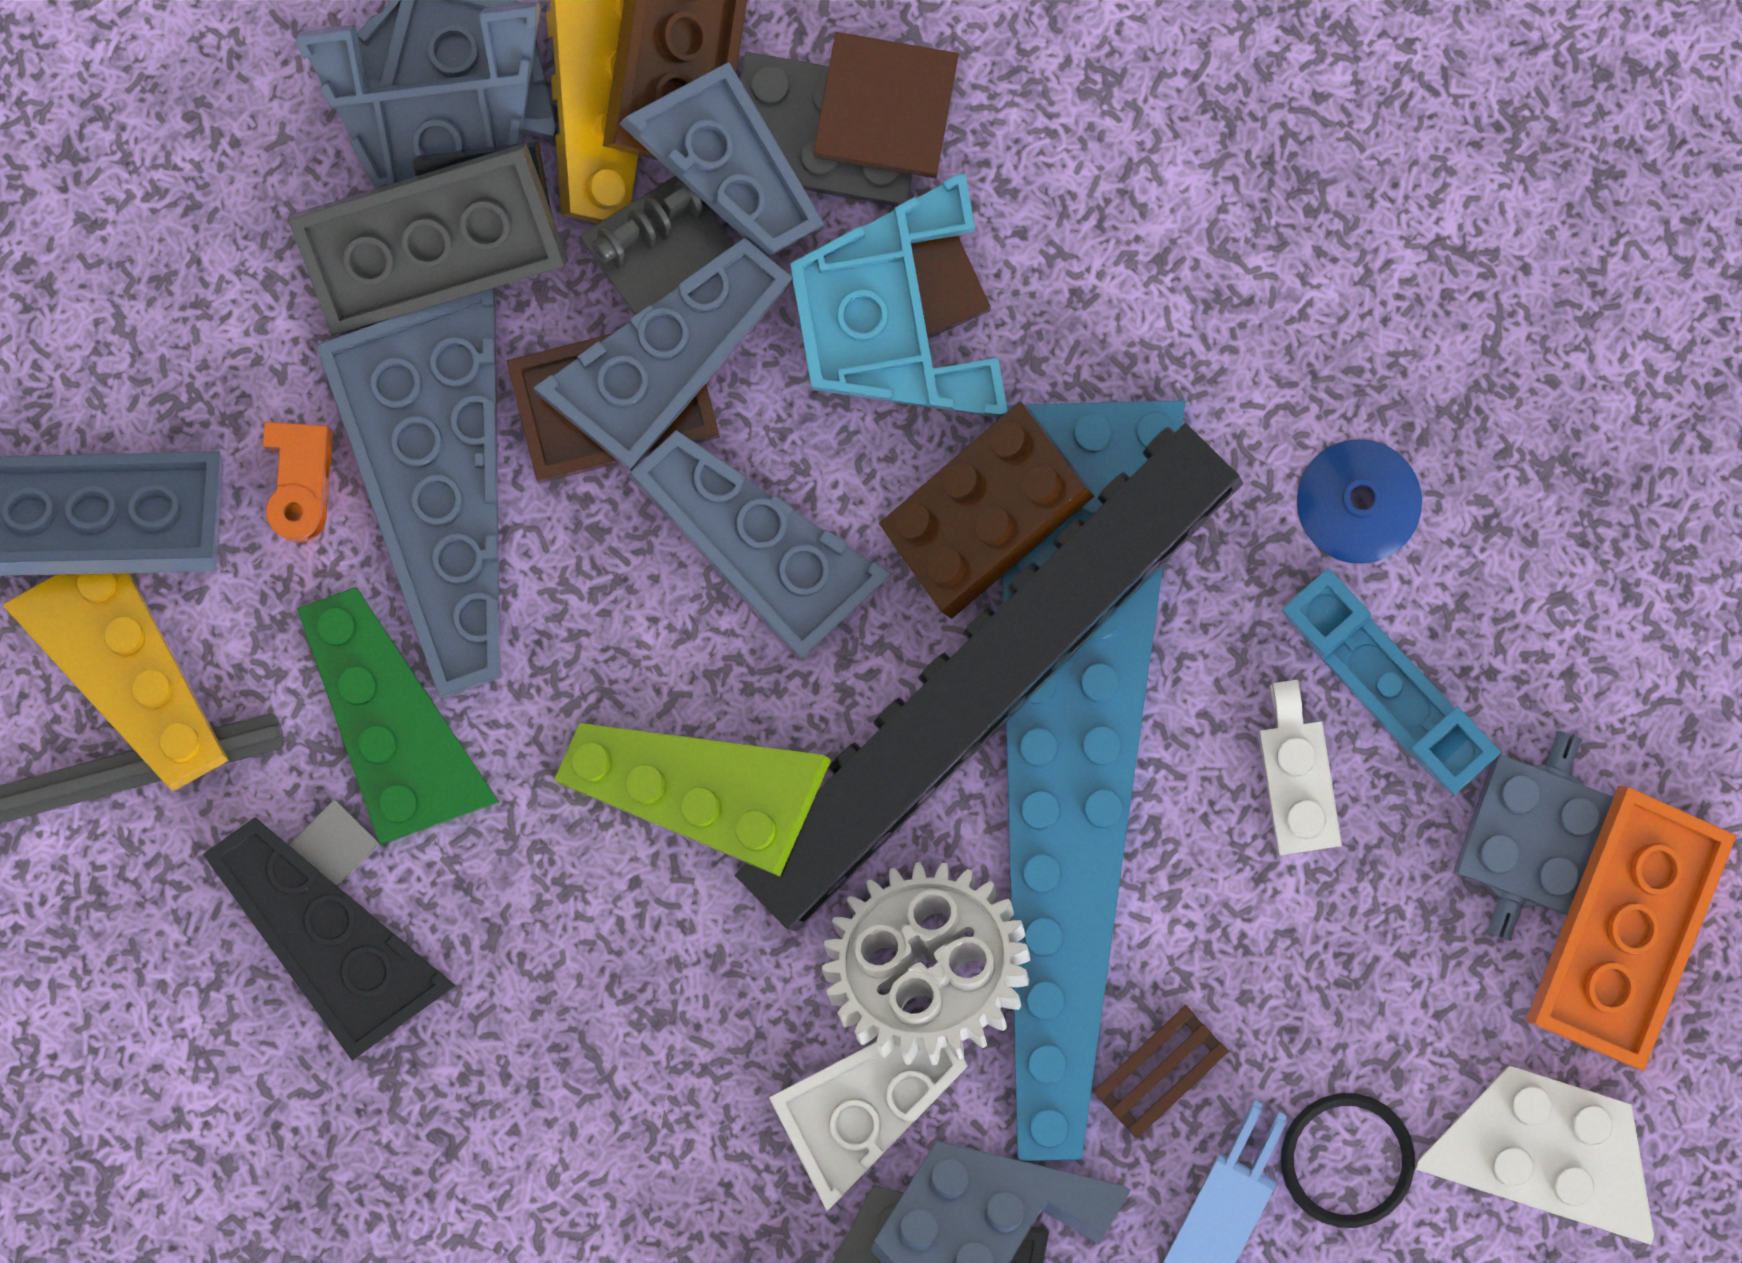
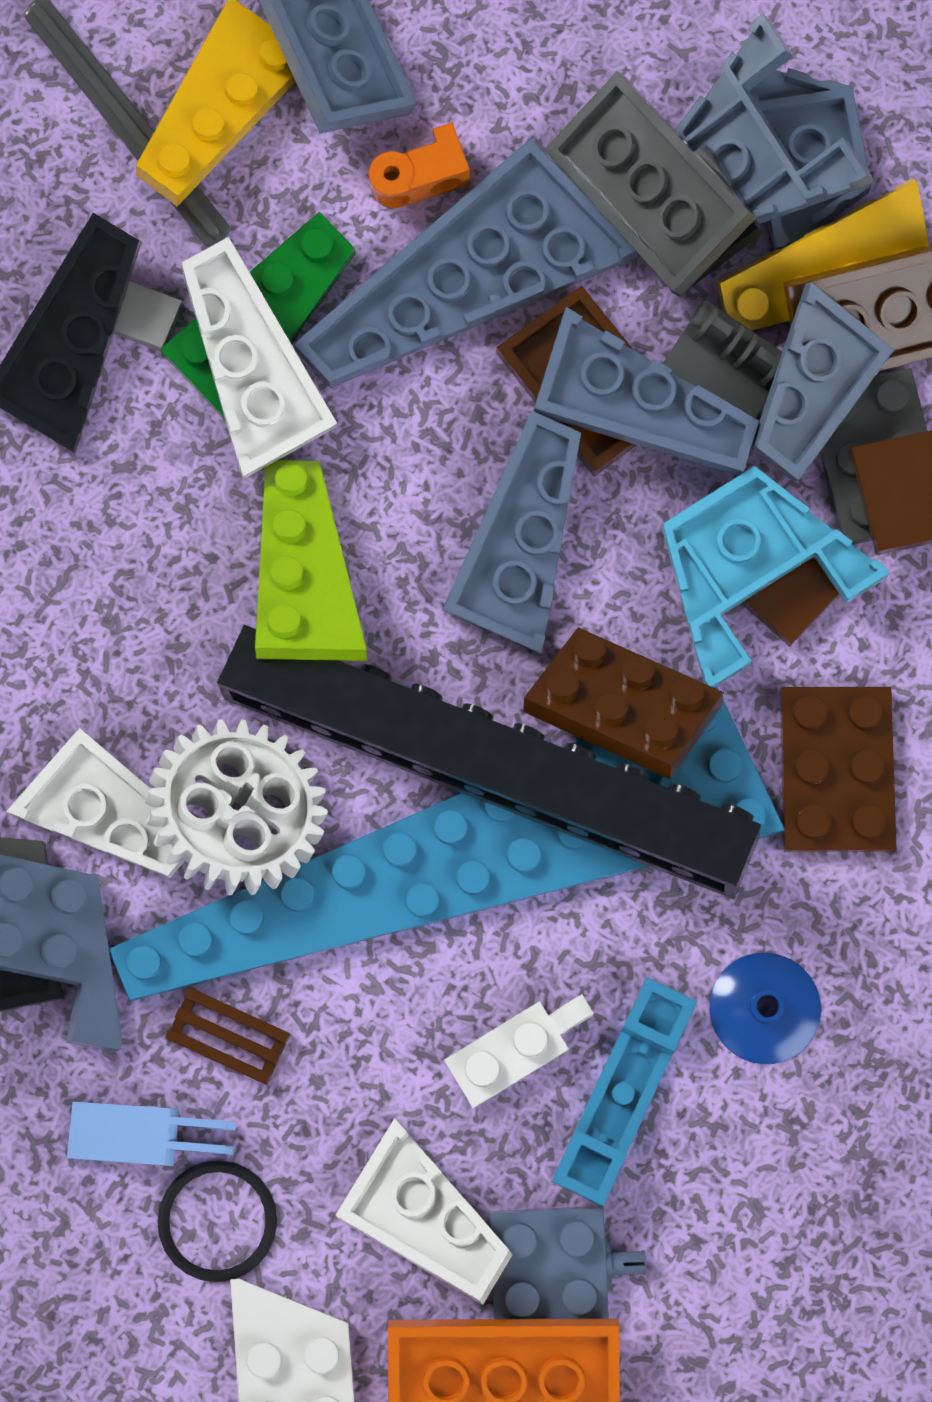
camera: 65 degrees right, 5 degrees down
(454, 749) = (257, 373): none -> white wing
(1142, 318) = (837, 769): none -> reddish brown plate
(1435, 943) = (423, 1218): none -> white wing

